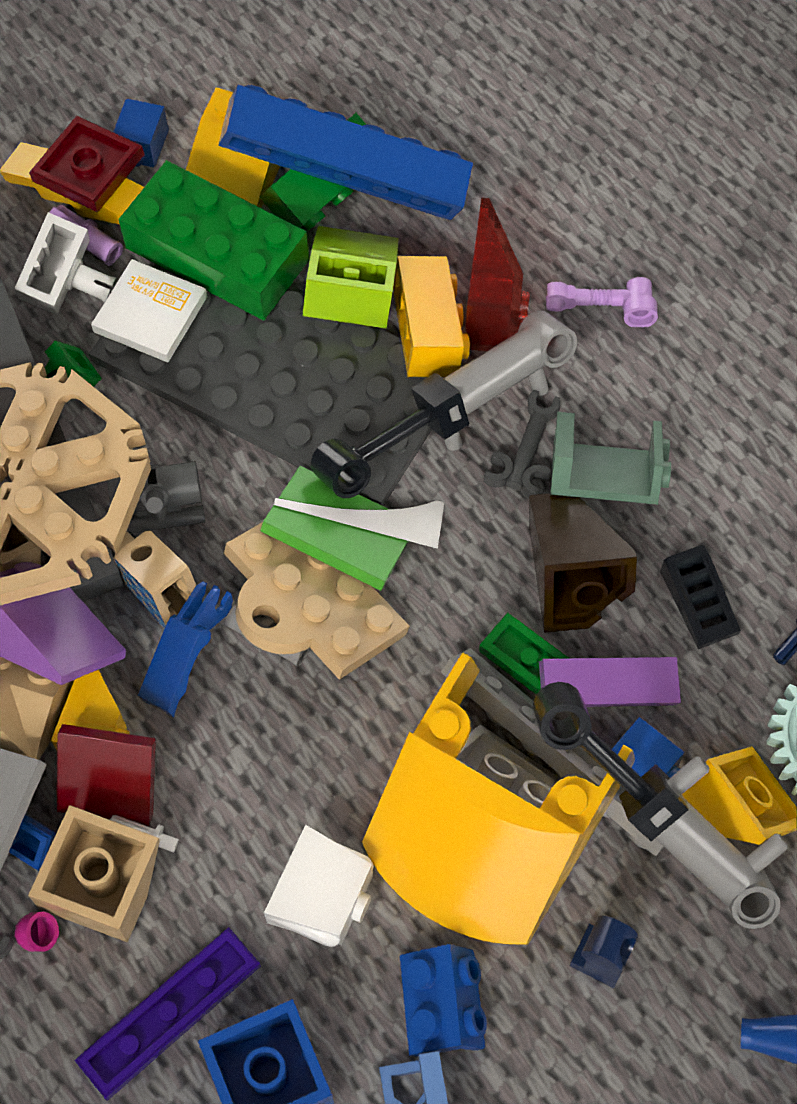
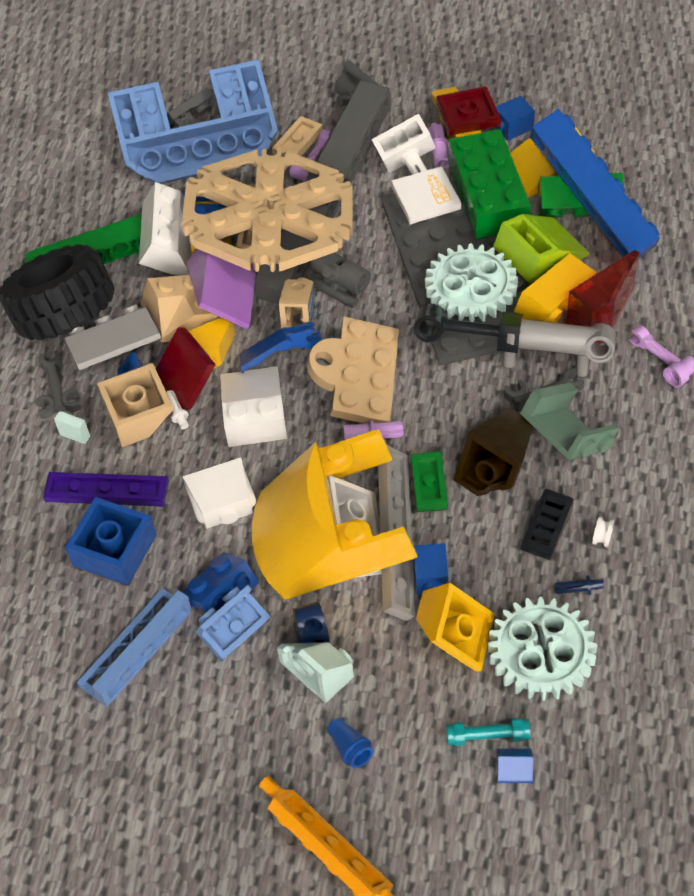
camera: 50 degrees right, 10 degrees down
(37, 931) = (95, 413): dark pink hinge -> none
(41, 976) = (72, 427): none -> light aqua tile
(70, 358) = (366, 196): green tile -> none
(230, 744) = (252, 406): none -> white slope
(328, 380) = (471, 282): none -> light aqua gear
(350, 549) = (403, 357): bright green tile -> none
(402, 654) = (387, 429): none -> lavender axle
(414, 524) = (442, 380): white sticker -> none
(513, 1030) = (232, 623): none -> medium blue bracket
(617, 680) = (453, 521): medium lavender tile -> none
(661, 985) = (318, 666): none -> light aqua slope
(662, 813) = (392, 576): piece -> none
(762, 554) = (603, 531): none -> white bush

